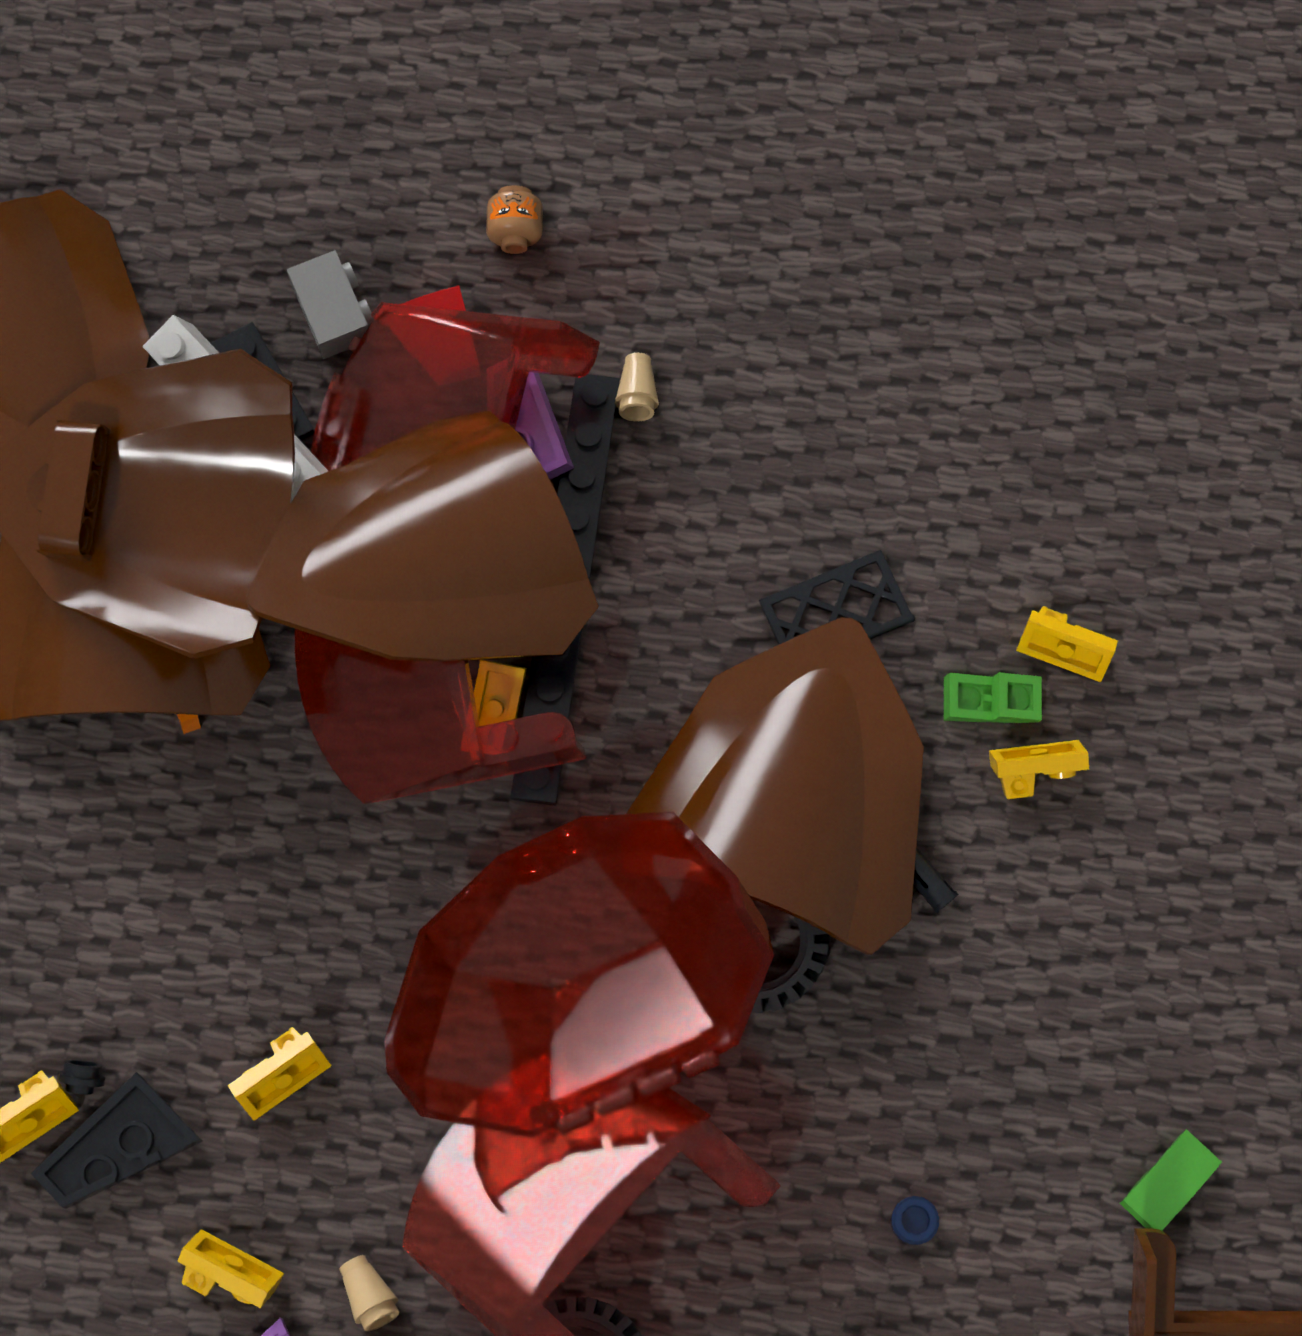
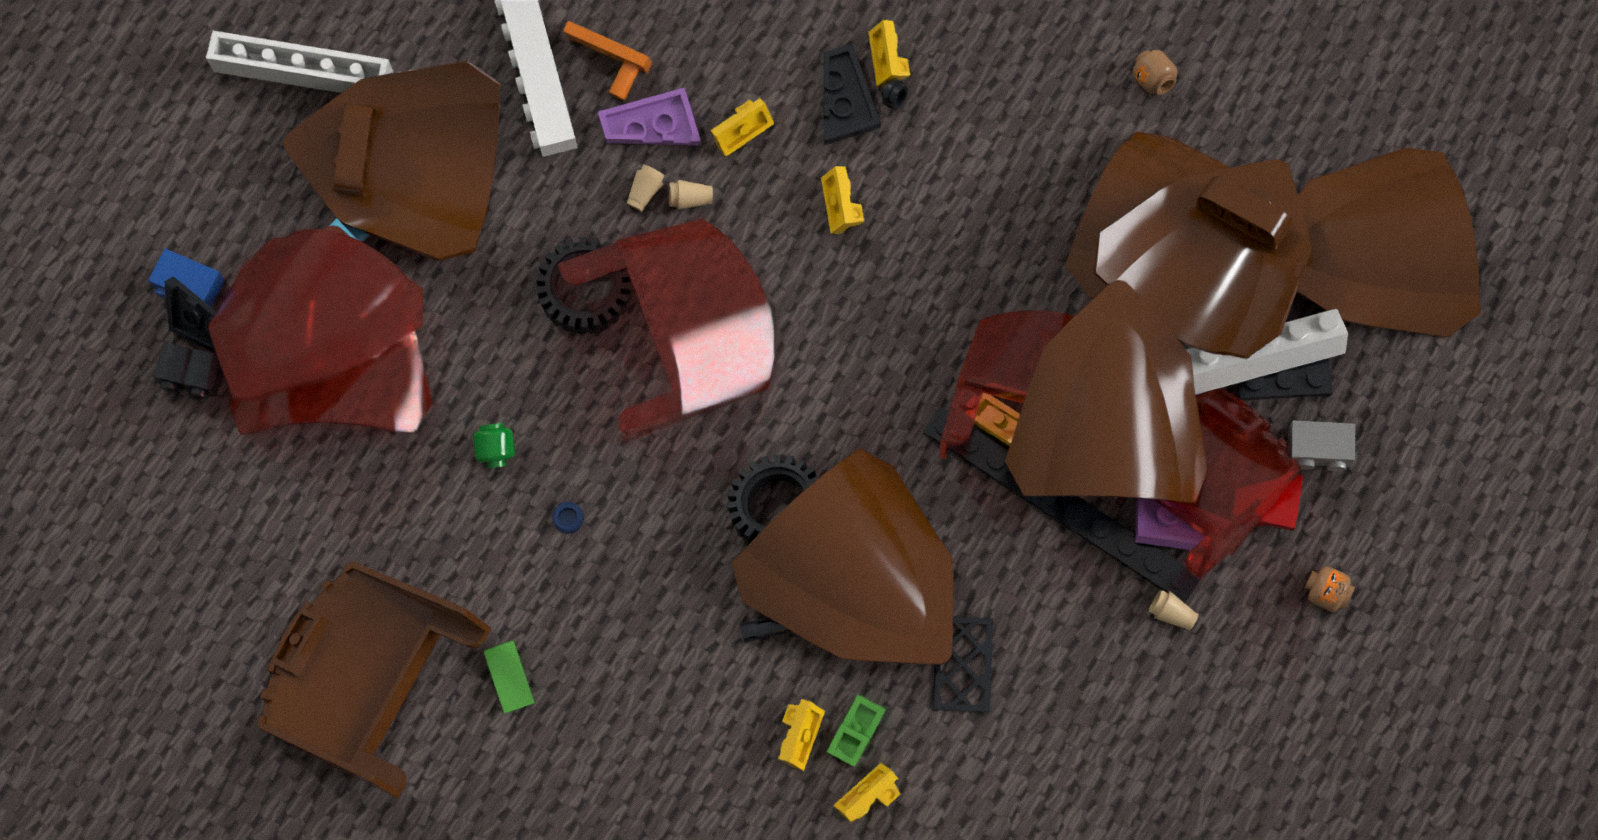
camera: 120 degrees right, 0 degrees up
(577, 978) = (802, 367): clear red windscreen -> none

